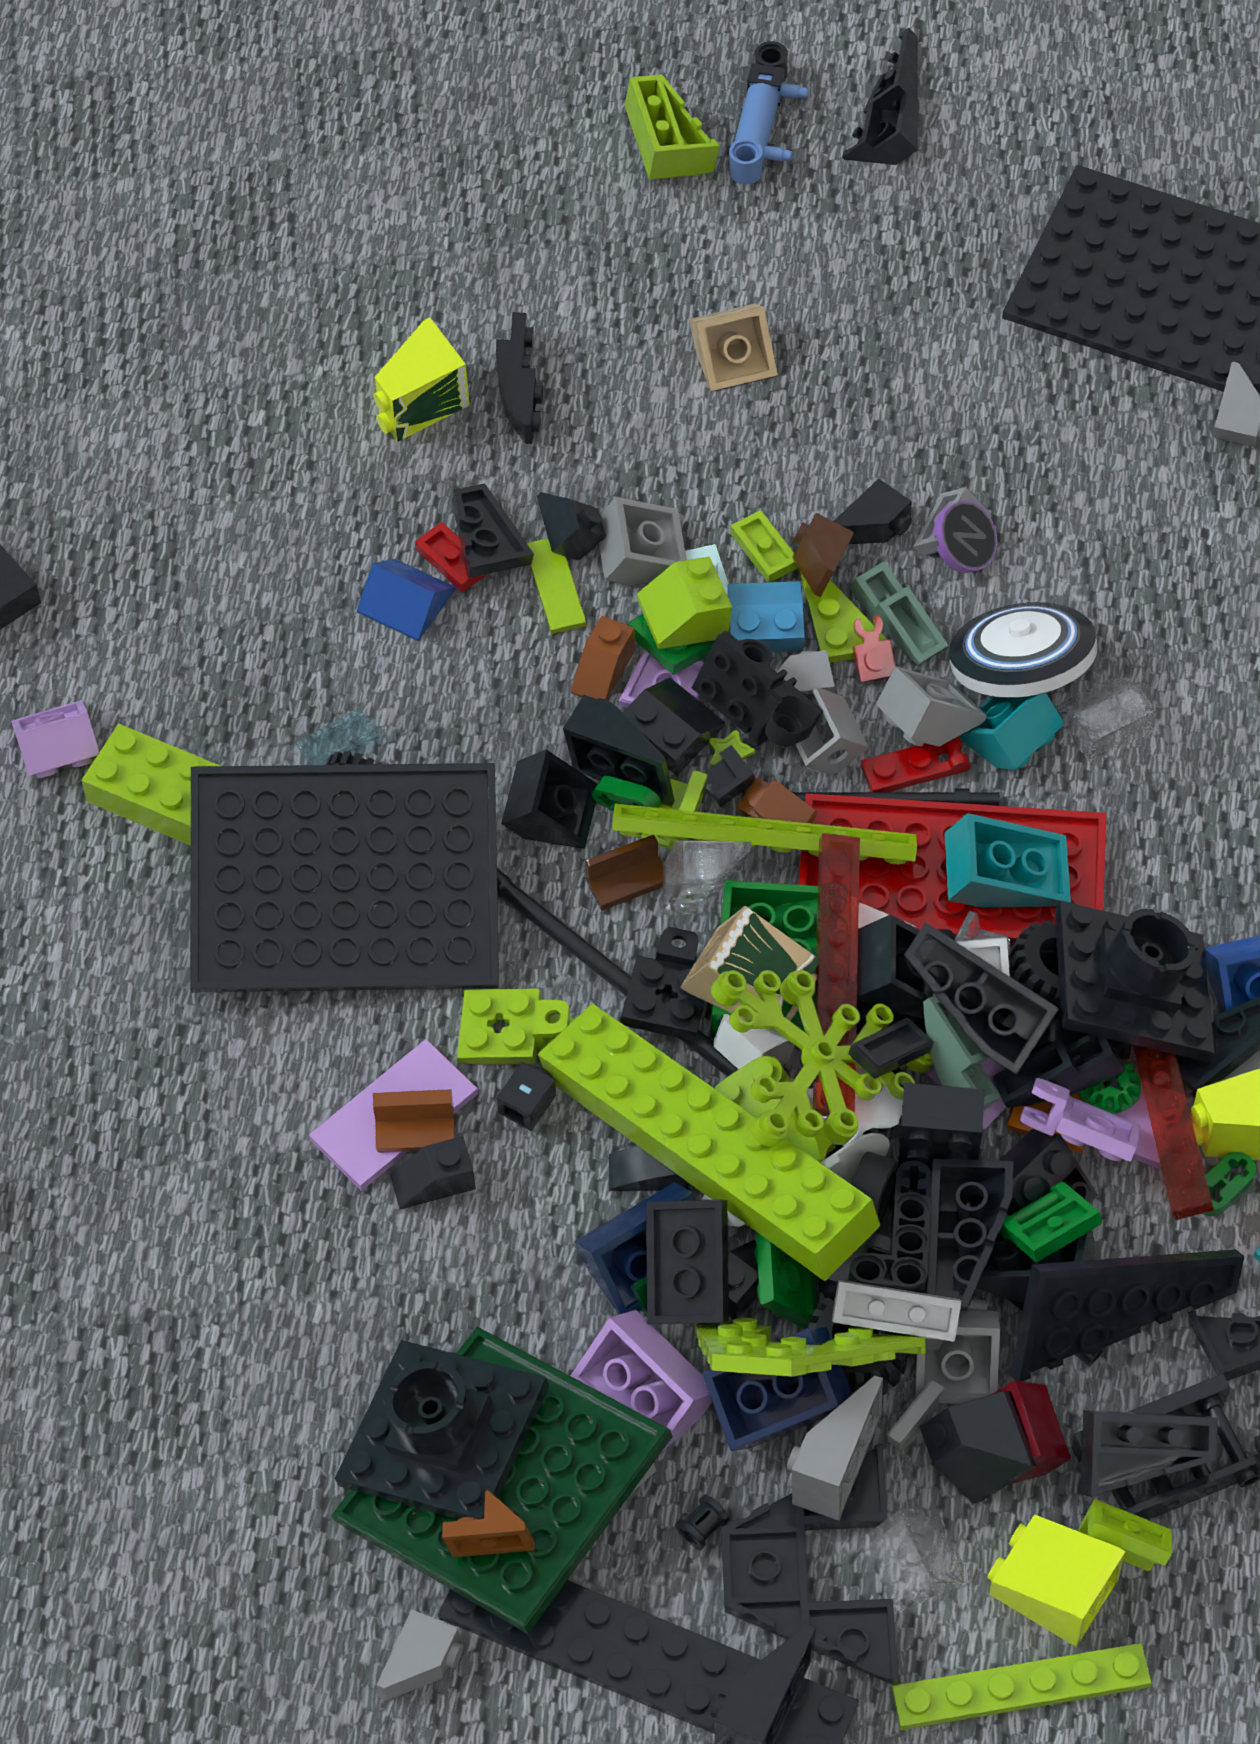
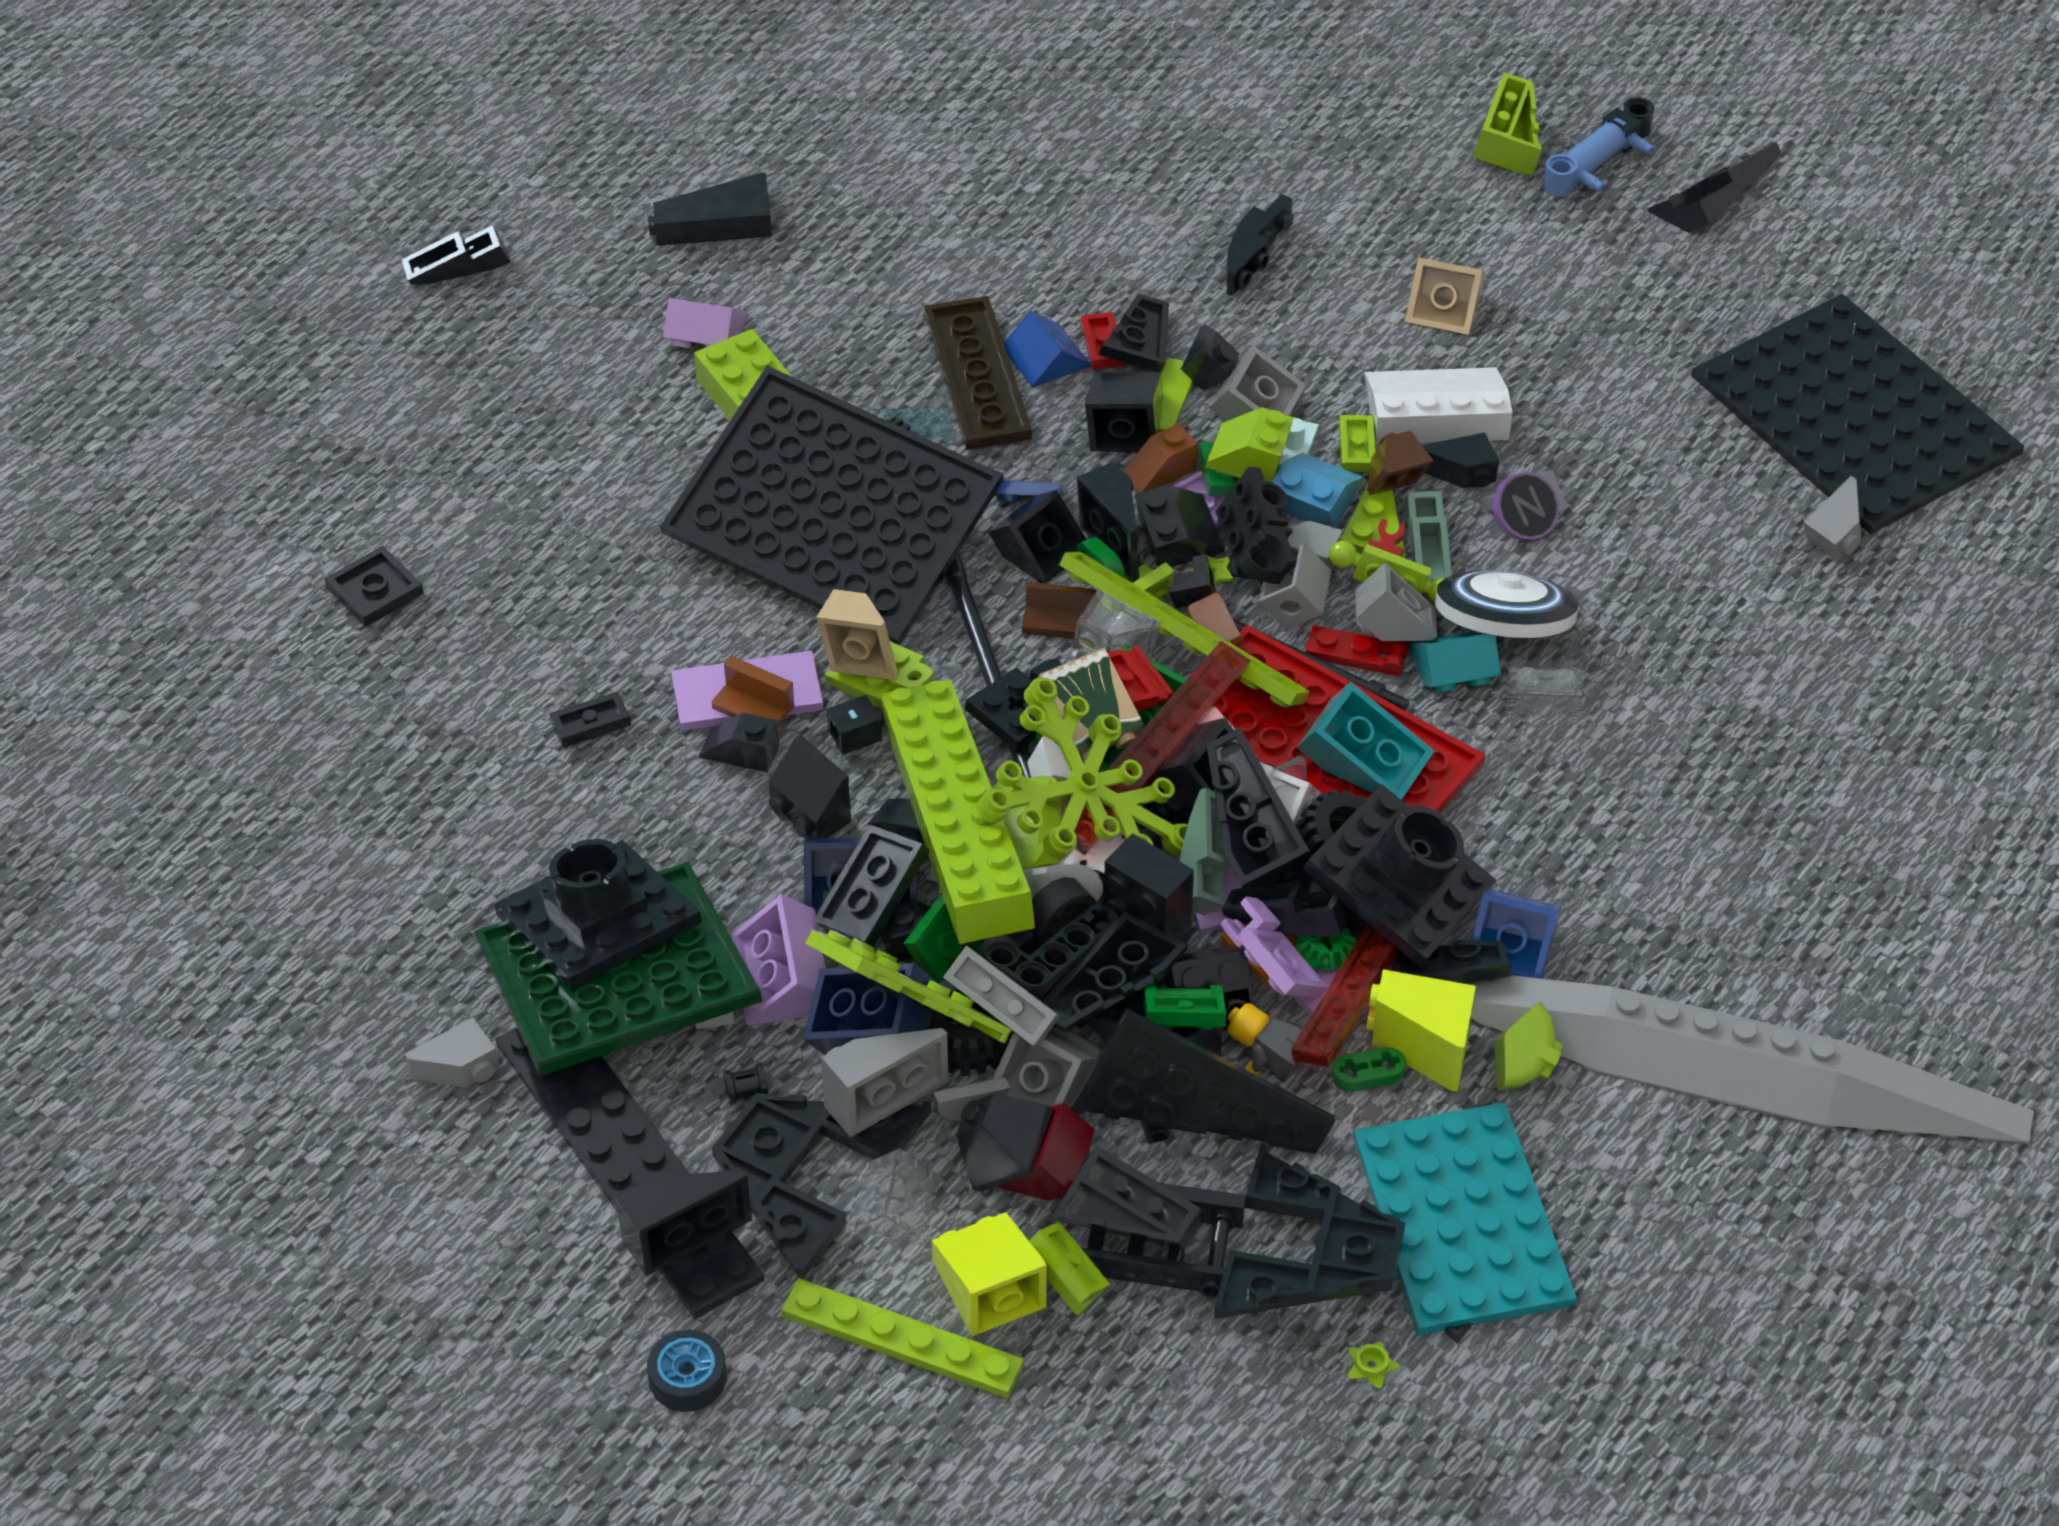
camera: 30 degrees right, 10 degrees down
(271, 1230) = (590, 719): none -> black plate
(359, 653) = (977, 373): none -> dark brown plate
(420, 383) = (1166, 209): neon yellow slope -> none
(483, 1008) = (856, 636): none -> tan slope
(497, 1533) = (561, 988): dark orange slope -> none
(506, 752) = (1012, 489): none -> blue plate
(534, 624) = (1123, 410): none -> black slope
(545, 1192) = (810, 791): none -> black slope
(774, 907) = (1140, 678): none -> red plate
(807, 464) = (1439, 403): none -> white slope
(878, 668) = (1344, 554): none -> lime plate
(890, 1048) = (1149, 812): black tile -> none
(1132, 1208) = (1269, 1040): none -> dark grey piece

